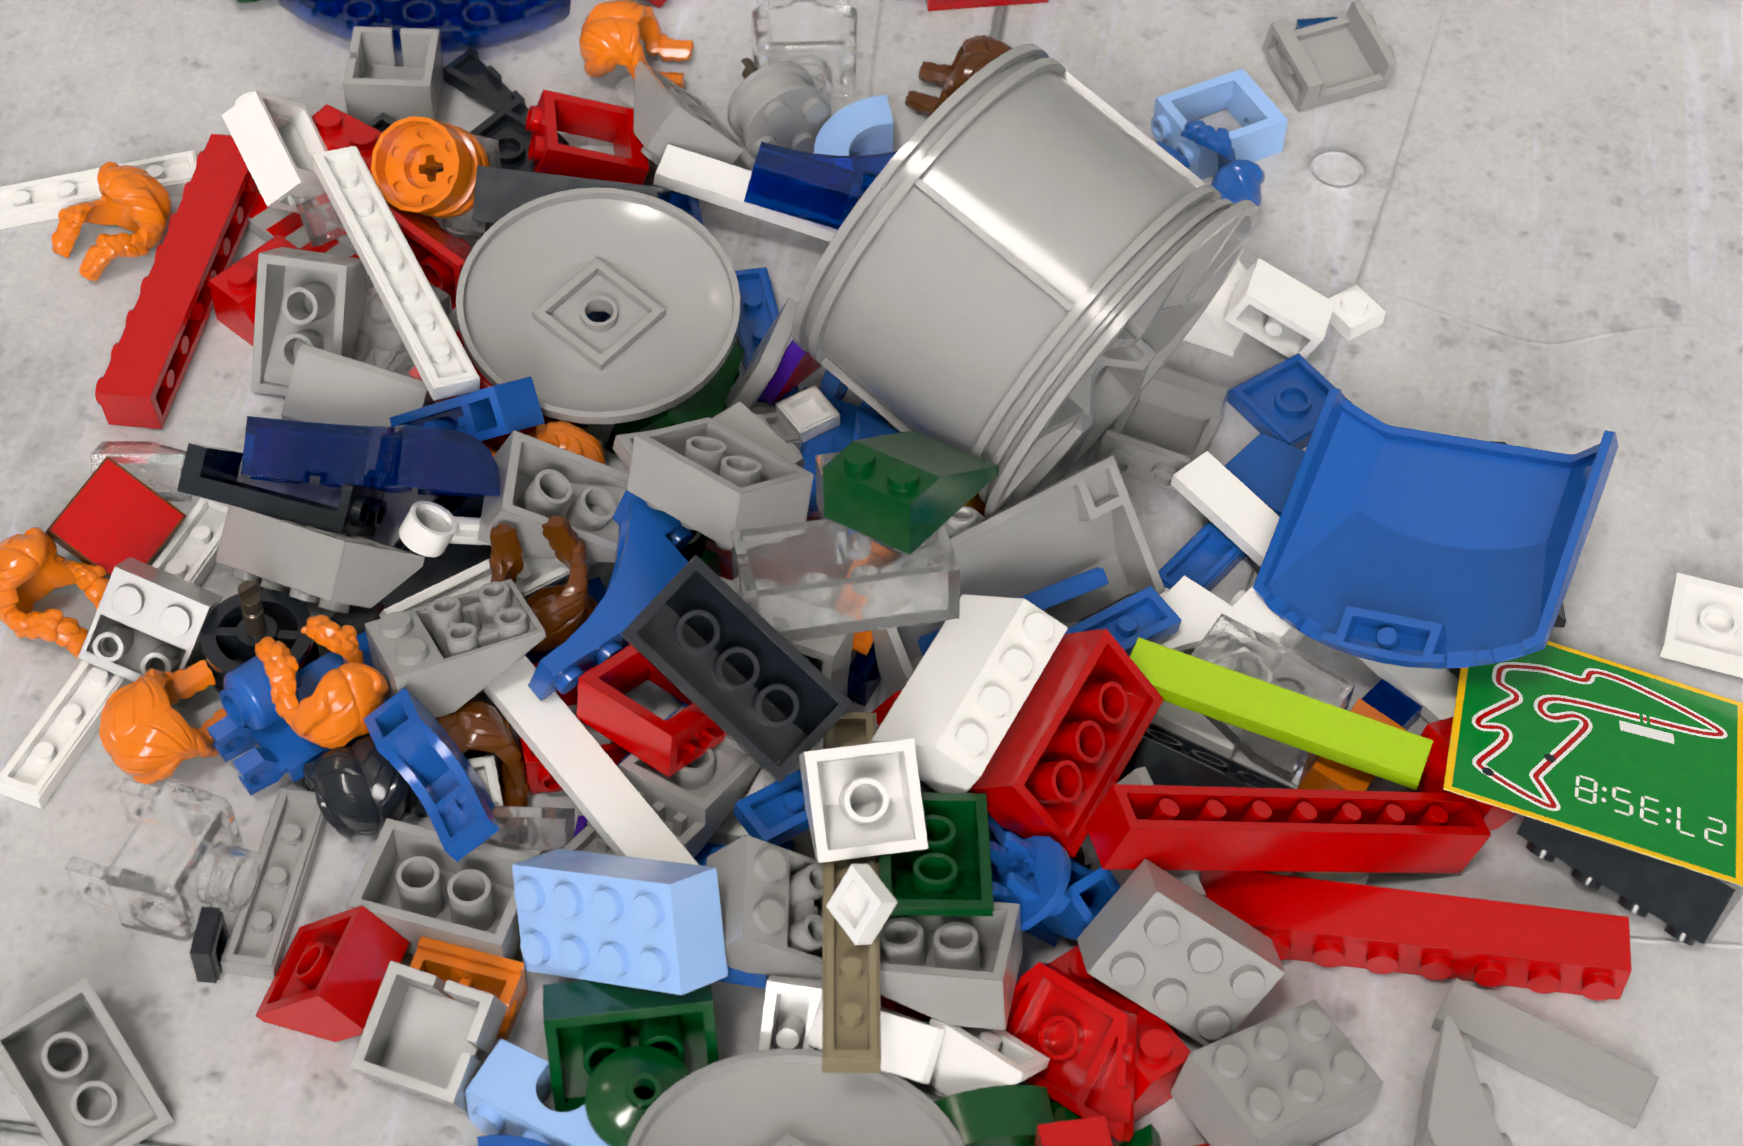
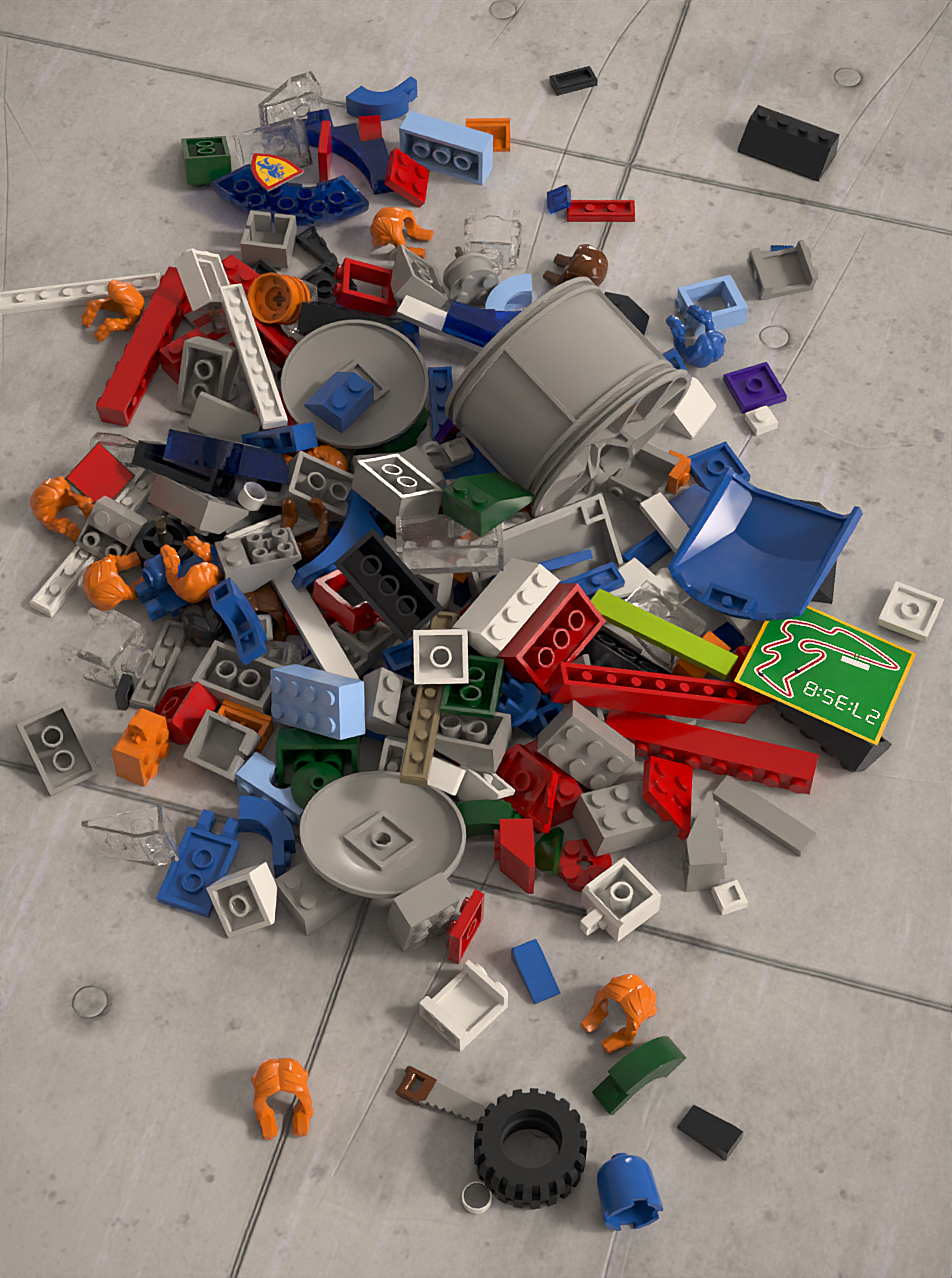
camera: 10 degrees right, 5 degrees up
(259, 1057) = (142, 747): none -> orange hinge
(580, 332) = (341, 400): none -> blue slope
(766, 357) = (433, 428): light grey tile -> none
(861, 904) = (430, 706): white plate -> none
(1230, 419) = (680, 473): none -> orange bracket
(1279, 310) = (718, 417): white brick -> none
(1327, 255) = (754, 387): none -> dark purple tile
(1361, 1028) = (669, 791): none -> red wing

